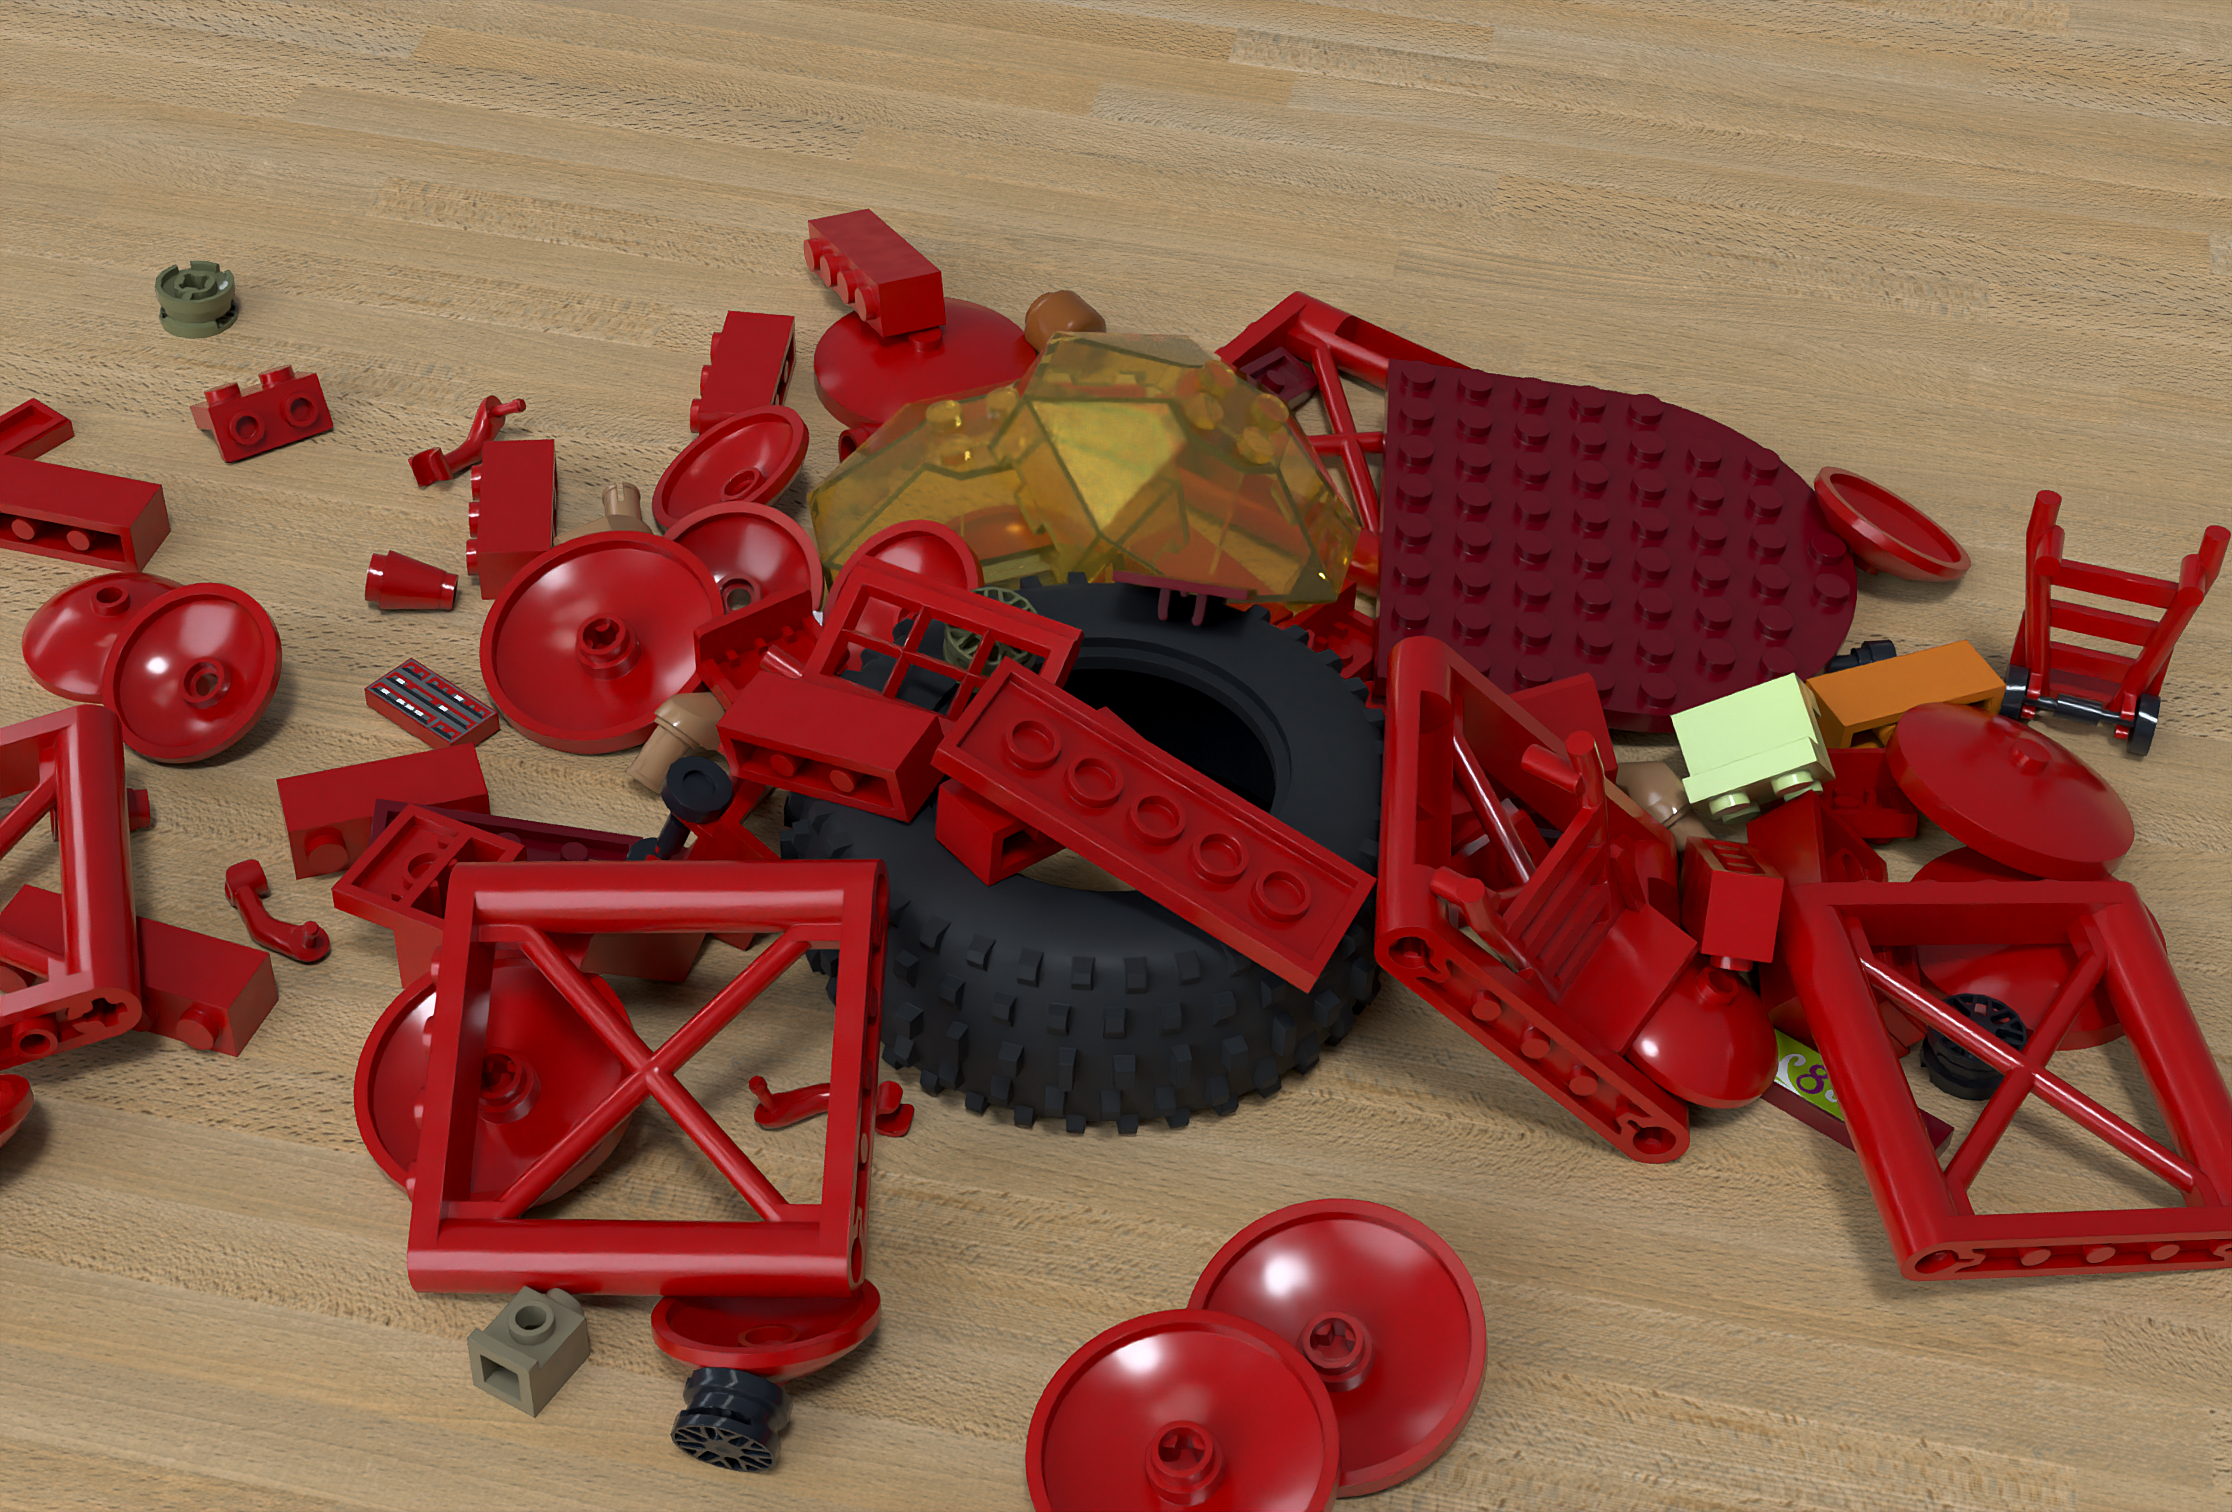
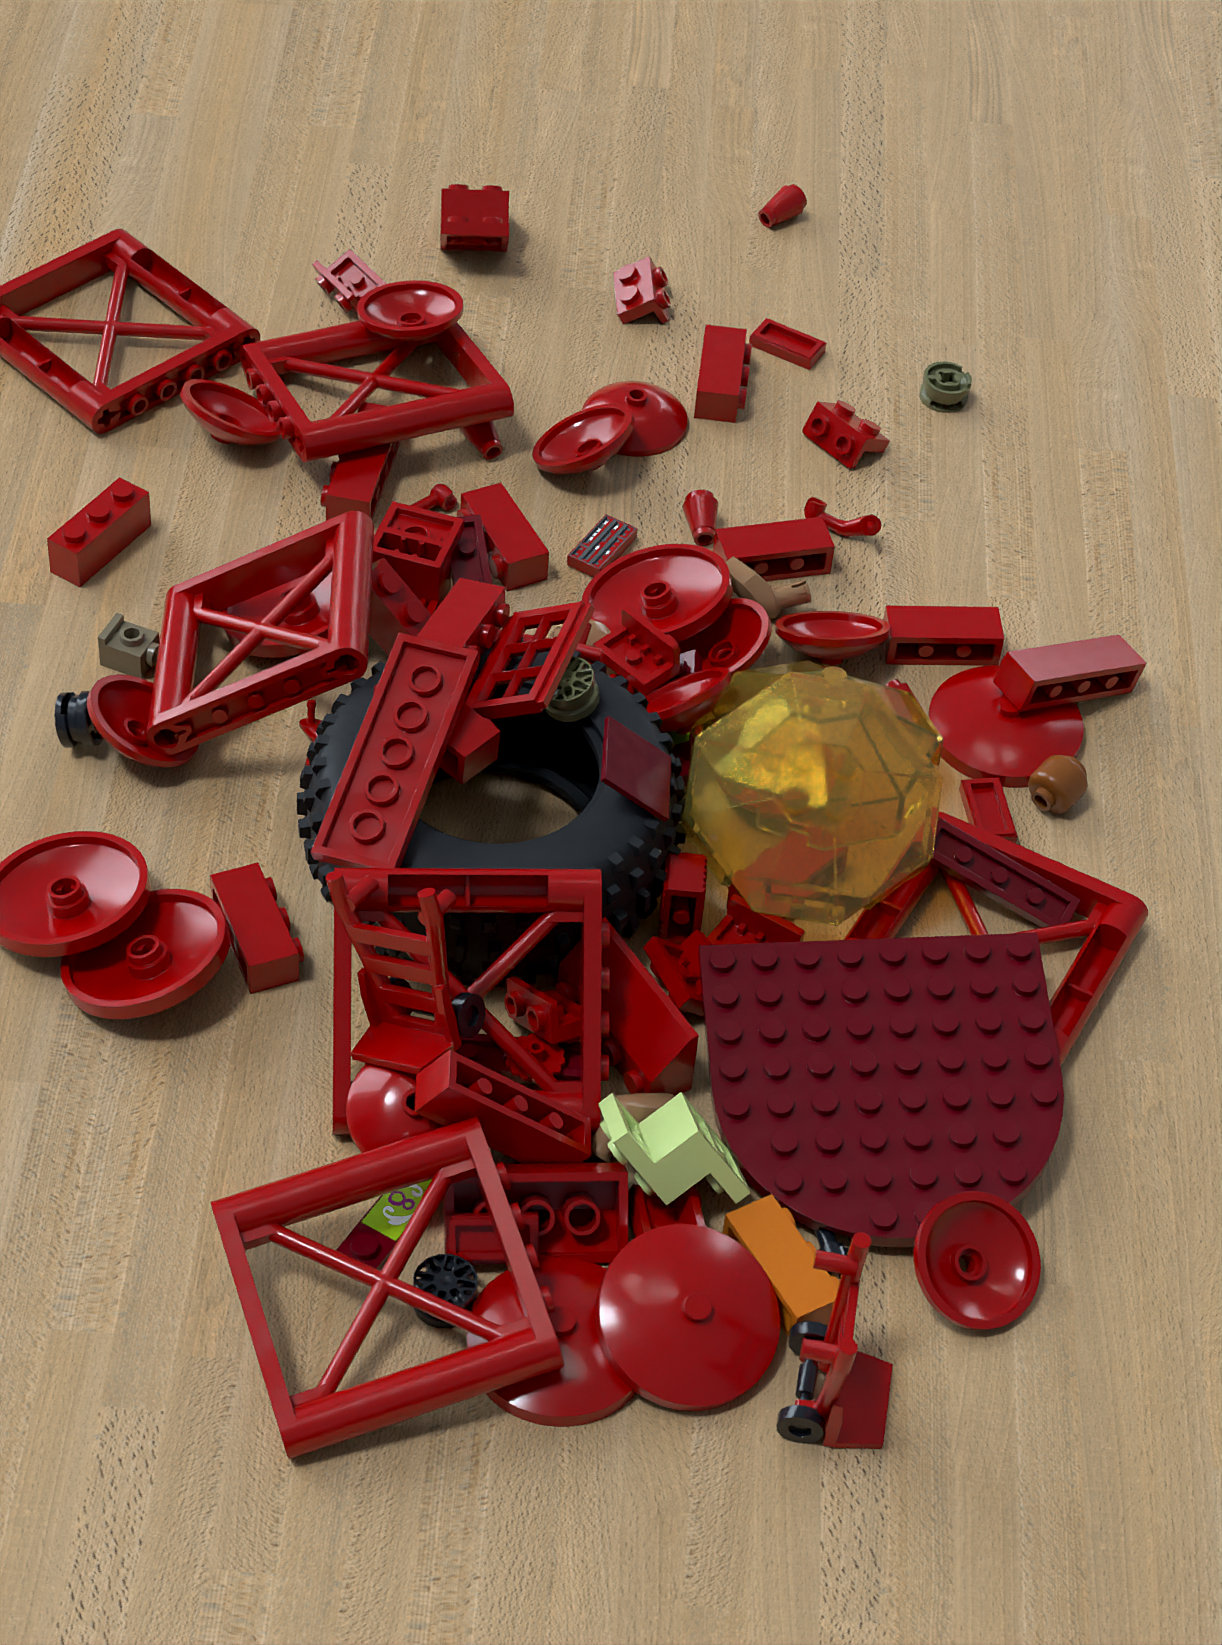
camera: 80 degrees right, 5 degrees up
(192, 1374) = (99, 532): none -> red brick
(1206, 1203) = (257, 927): none -> red brick

